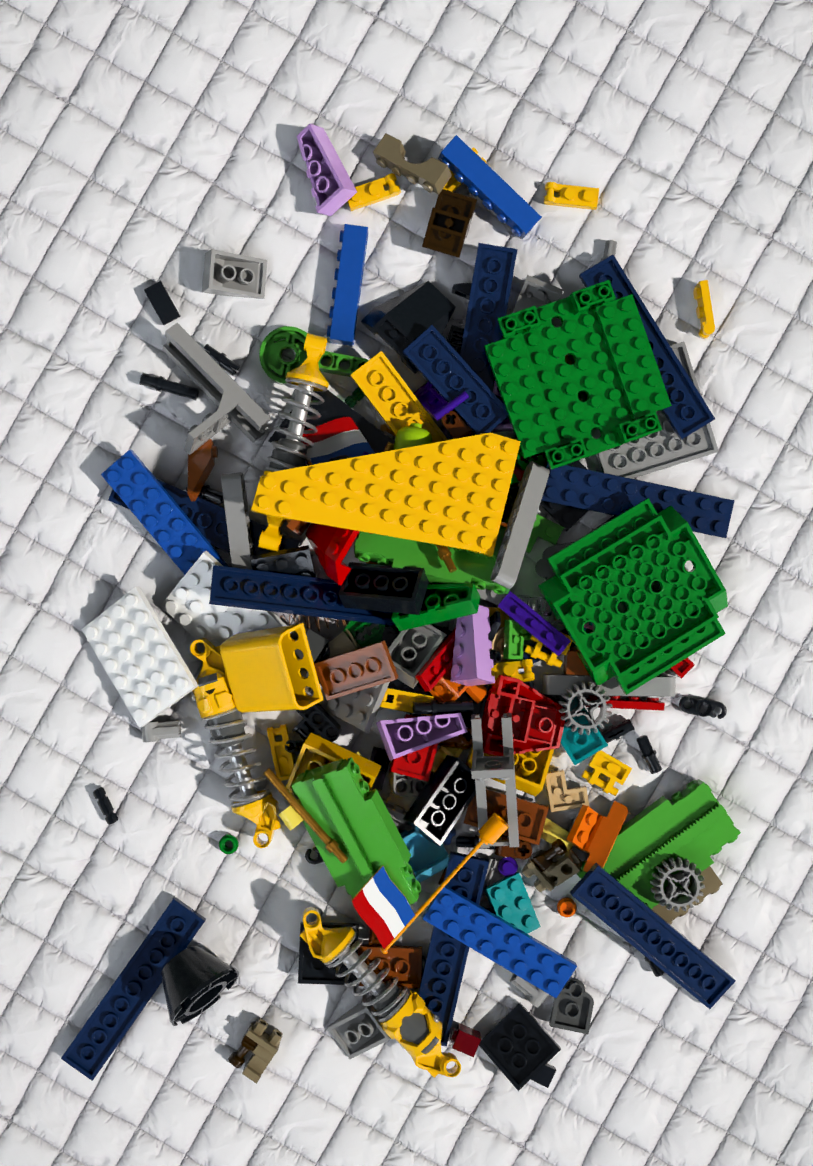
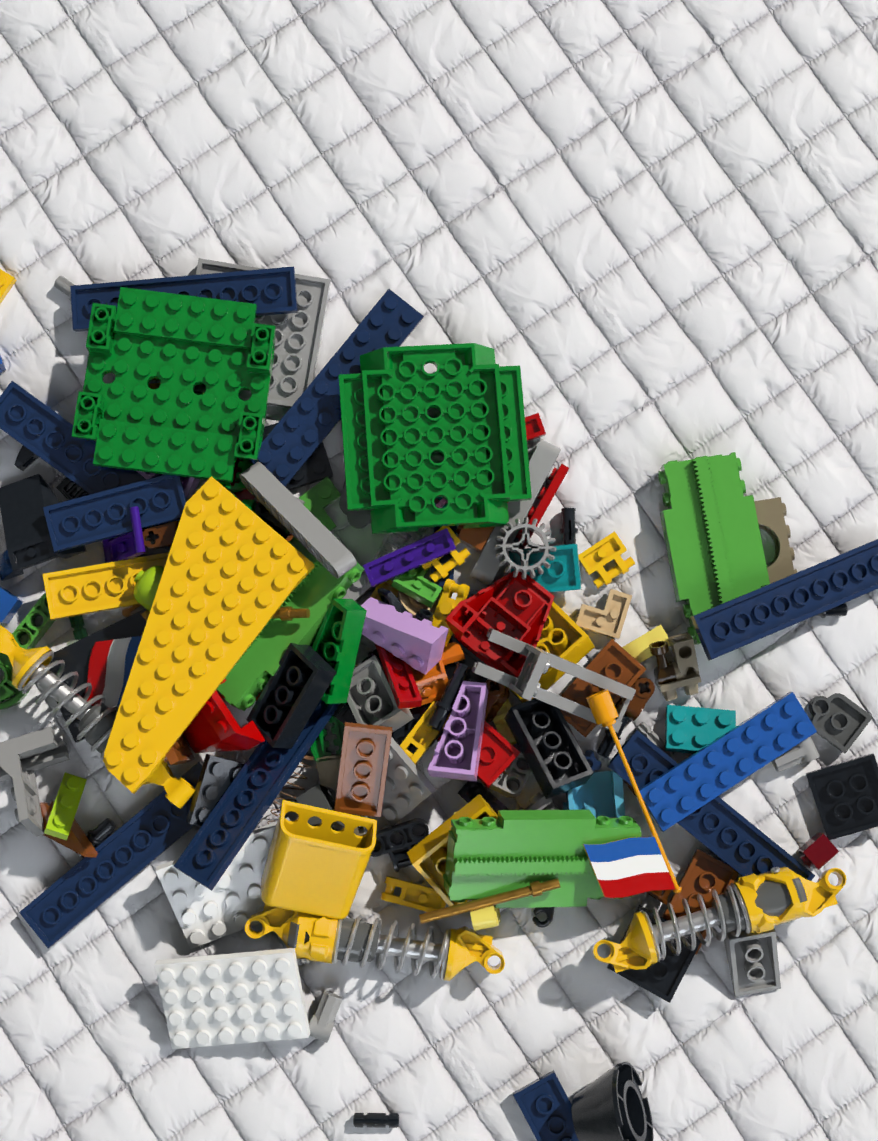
camera: 60 degrees left, 5 degrees down
(158, 511) = (87, 899): blue plate -> none
(217, 459) = (65, 806): none -> lime plate
(224, 848) = (488, 1010): green plate -> none
(237, 520) = (140, 816): light grey beam -> none
(261, 1045) = (718, 1079): dark tan hips -> none
(294, 746) = (414, 879): black pin -> none
(507, 866) = (654, 713): dark purple plate -> none
(536, 294) = (69, 382): light grey bracket -> none
(566, 907) = (728, 673): orange plate -> none
(597, 833) = (663, 602): orange plate -> none
(649, 754) = (608, 506): black axle -> none
(690, 895) = (753, 536): light grey gear -> none
(694, 707) = (588, 416): black piece -> none
(704, 309) = (177, 221): yellow plate -> none

